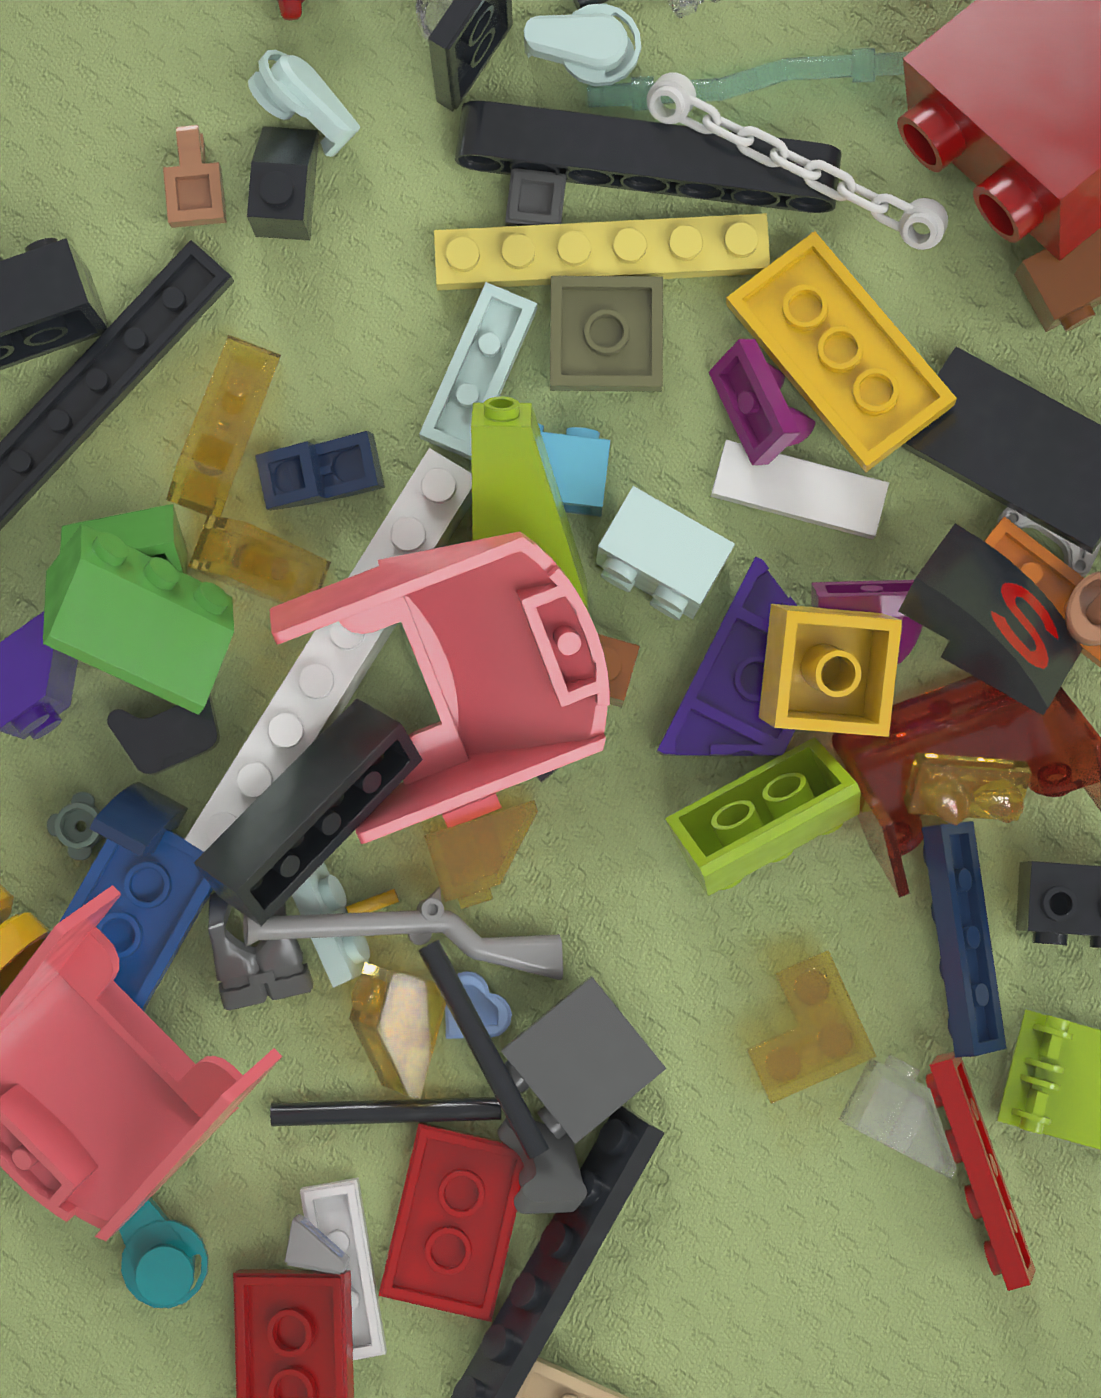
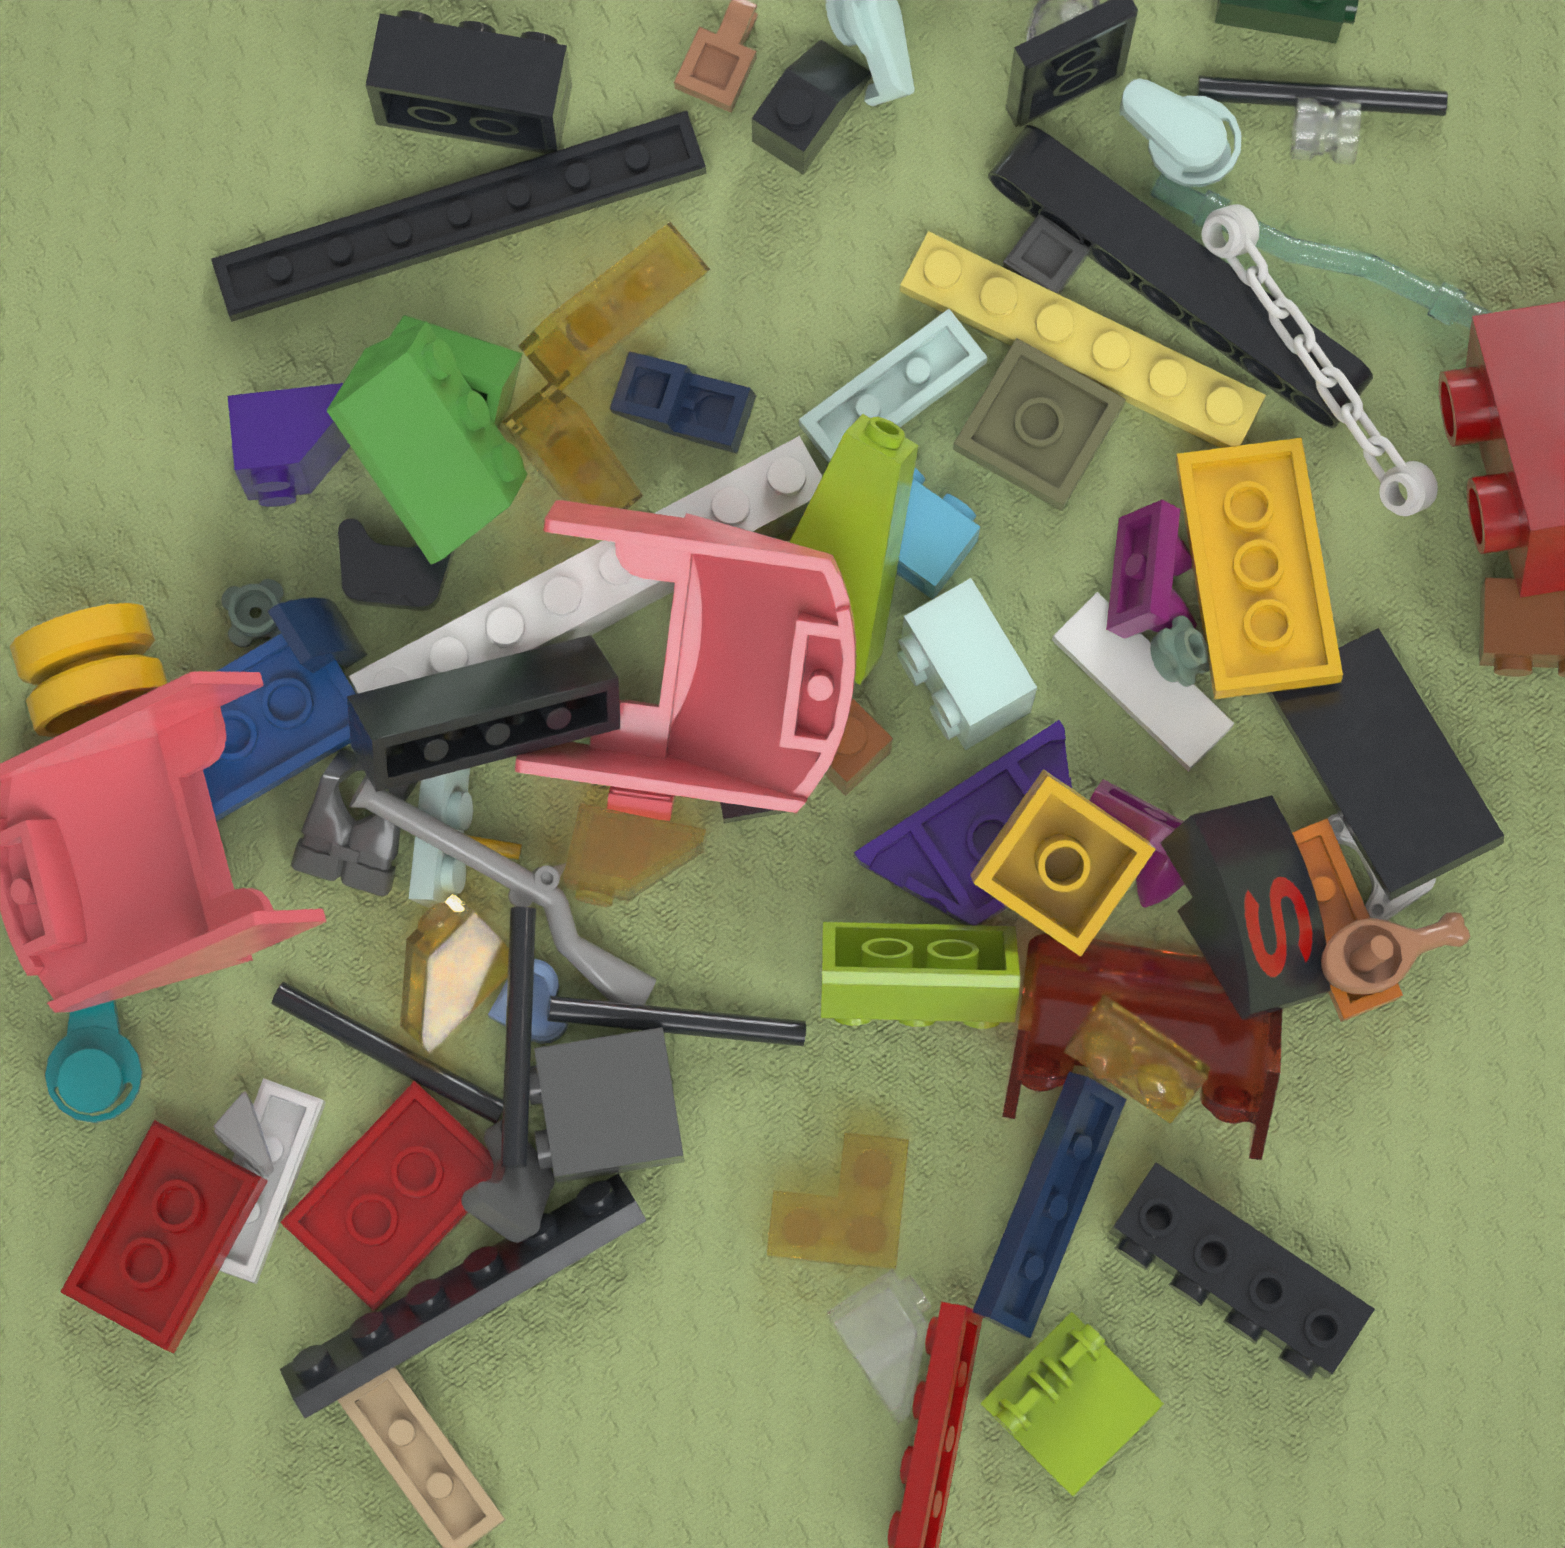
camera: 30 degrees right, 5 degrees down
(595, 960) = (676, 1021): none -> black bar
(820, 451) = (1180, 652): none -> sand green plate

